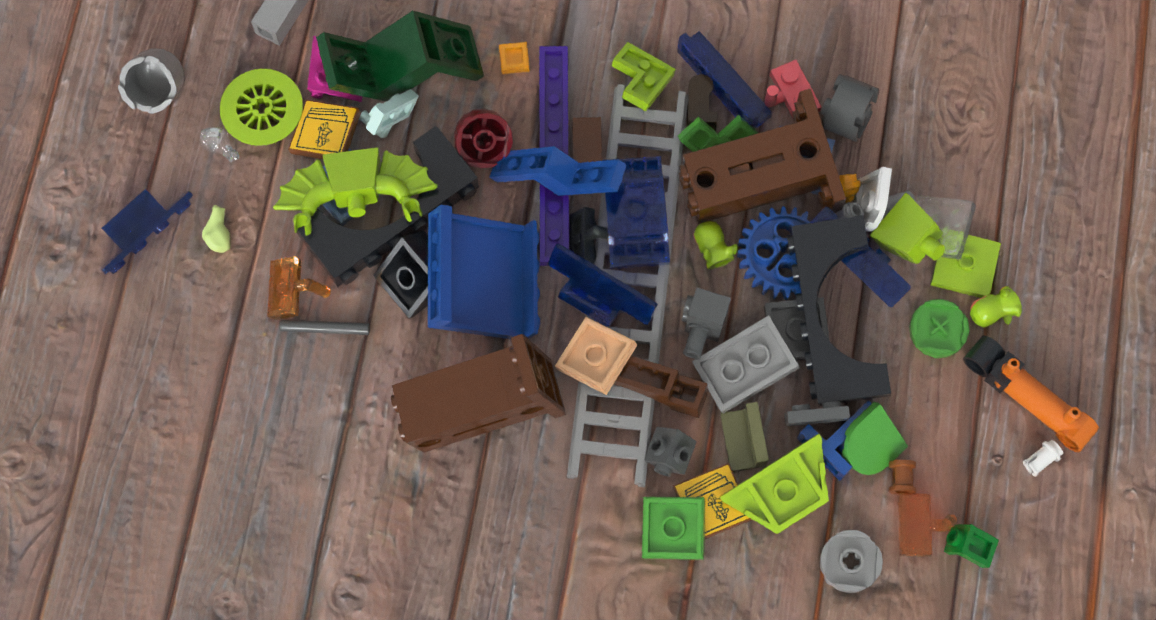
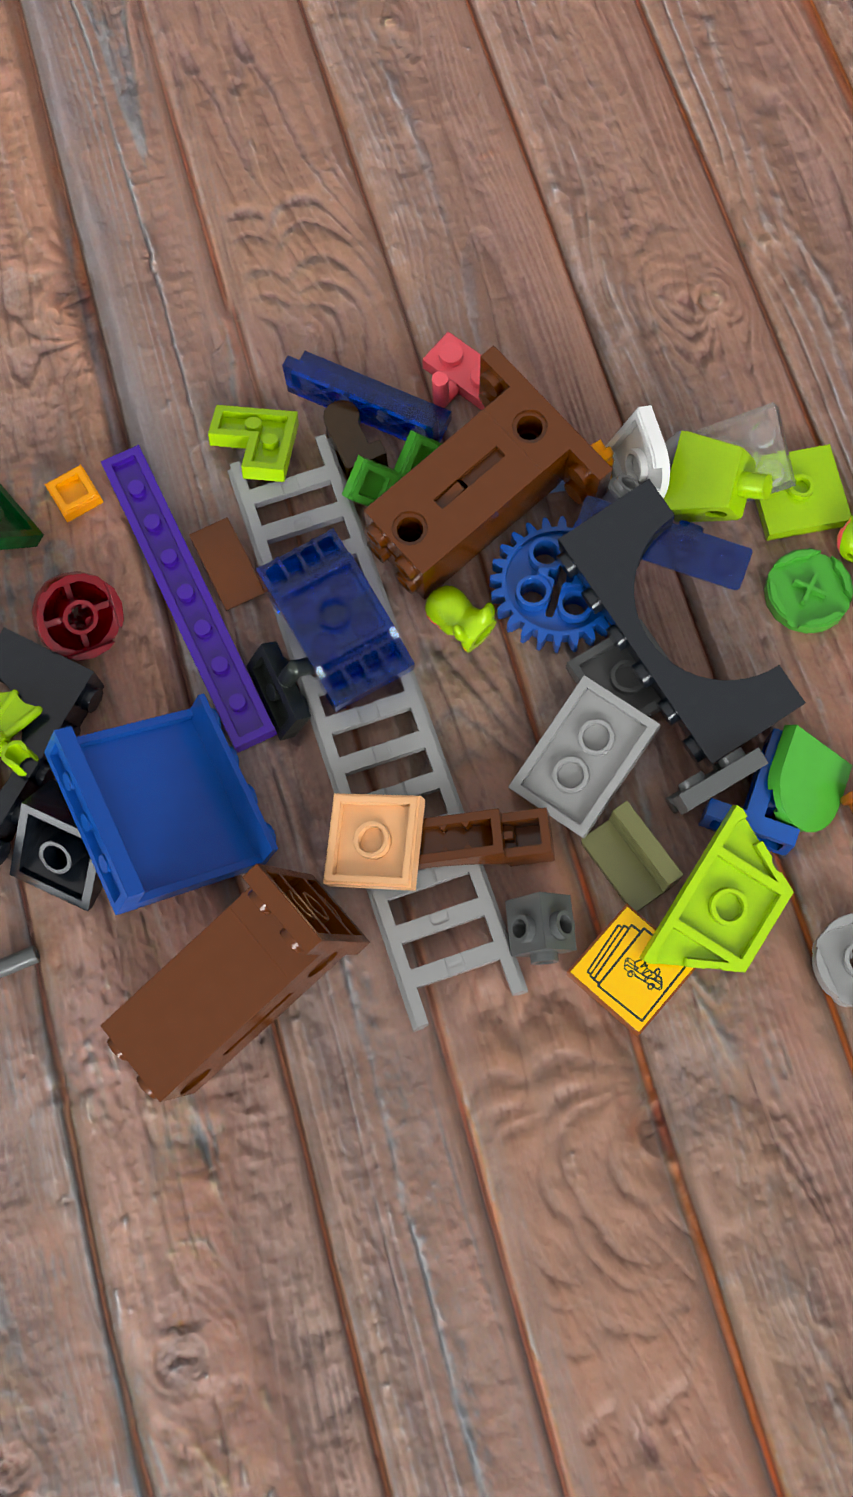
camera: 20 degrees left, 0 degrees up
(559, 171) = (204, 610): blue bracket -> none
(597, 291) = (334, 751): clear blue bracket -> none
(673, 528) = (598, 1033): bright green tile -> none
(704, 320) = (498, 720): dark grey brick -> none
(849, 108) = (550, 355): dark grey brick -> none

